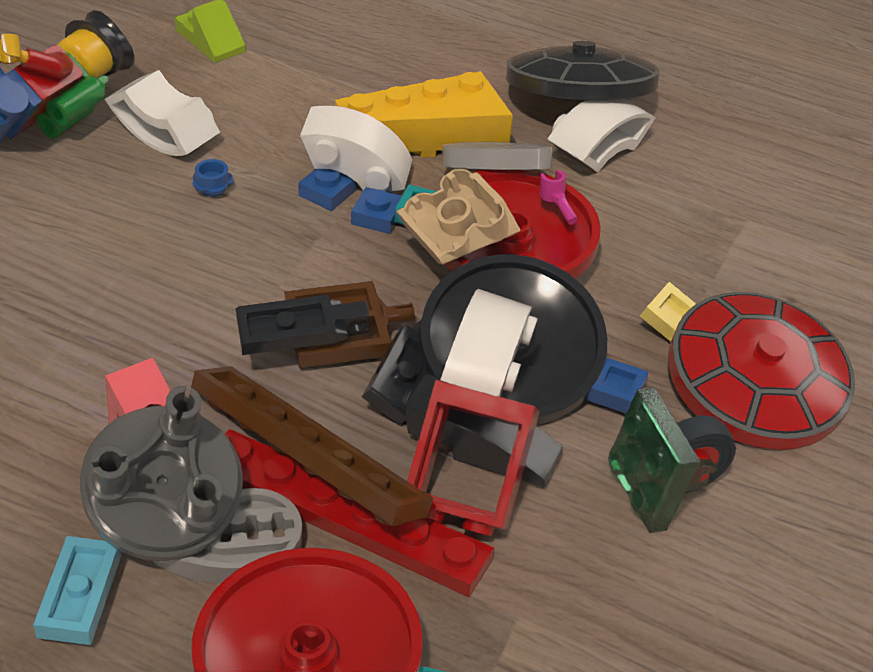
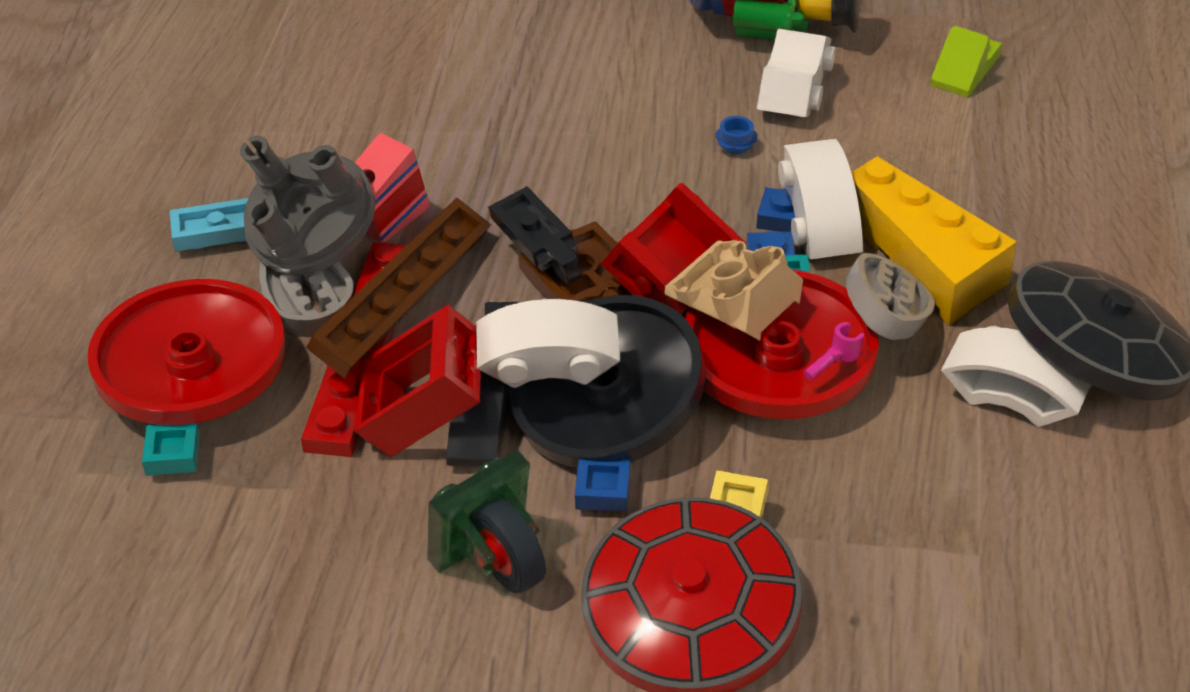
camera: 75 degrees right, 0 degrees up
(356, 245) = (666, 245): none -> red panel

